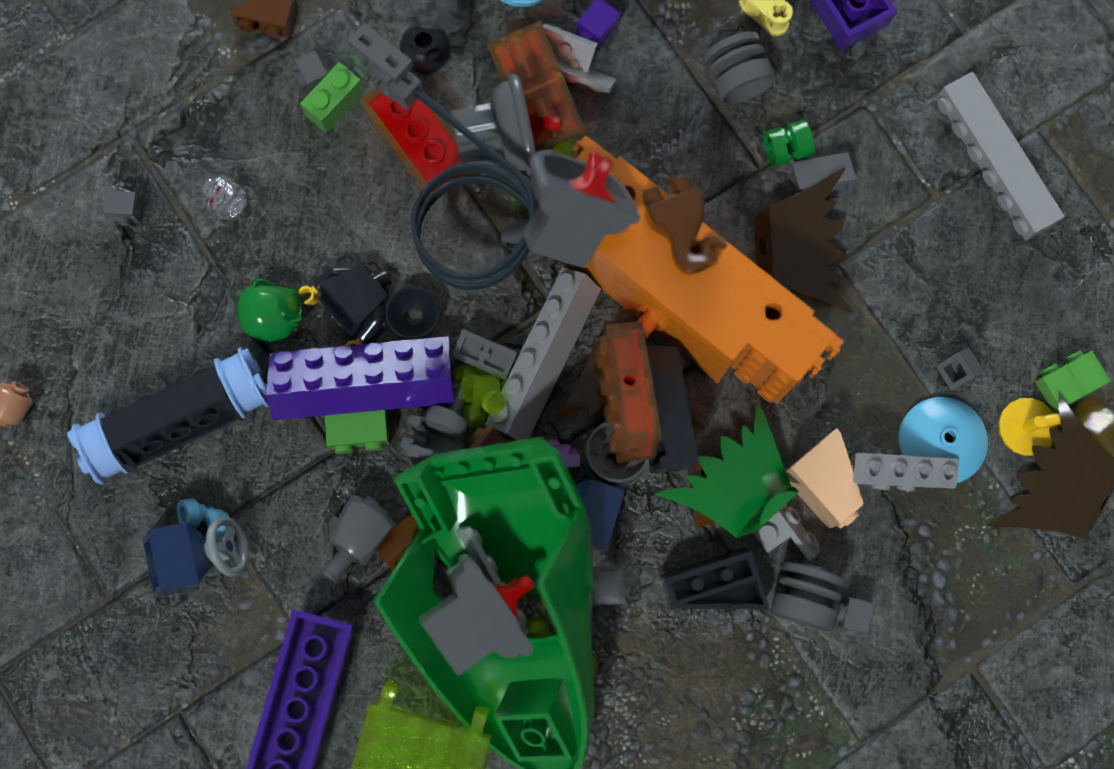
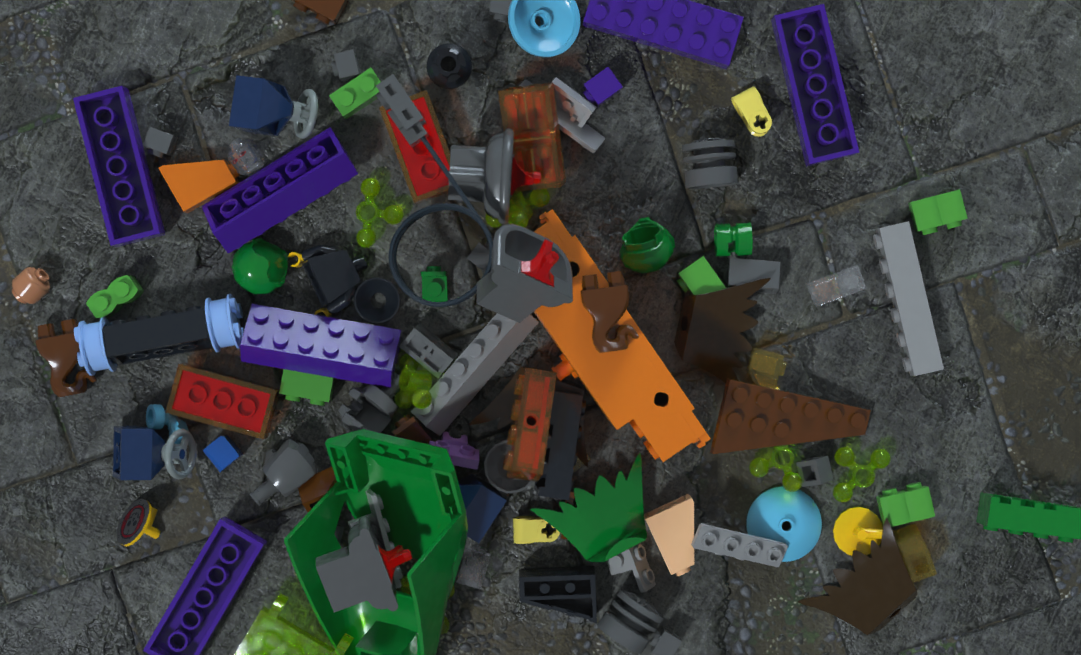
camera: 20 degrees right, 10 degrees up
(64, 477) = (62, 357): none -> reddish brown hips
(81, 244) = (119, 166): none -> dark purple brick
(114, 384) = (110, 300): none -> bright green brick
(178, 237) = (199, 181): none -> orange slope
(194, 642) = (136, 522): none -> shield
(231, 137) = (266, 108): none -> dark blue piece
(263, 473) = (223, 401): none -> red brick
(270, 219) = (279, 190): none -> dark purple brick
(277, 535) = (222, 452): none -> blue piece
(372, 195) = (392, 214): none -> clear neon green piece
(471, 265) = (434, 284): none -> green bracket
(660, 525) = (530, 530): none -> light yellow piece
(702, 169) = (646, 246): none -> green helmet
(763, 191) = (699, 278): none -> bright green brick
(867, 277) = (765, 368): none -> clear yellow slope
(894, 319) = (770, 417): none -> reddish brown wing
(897, 382) = (760, 467): none -> clear neon green piece
(916, 162) = (836, 285): none -> clear slope
(988, 345) = (845, 457): none -> clear neon green piece
(998, 57) = (938, 211): none -> bright green brick

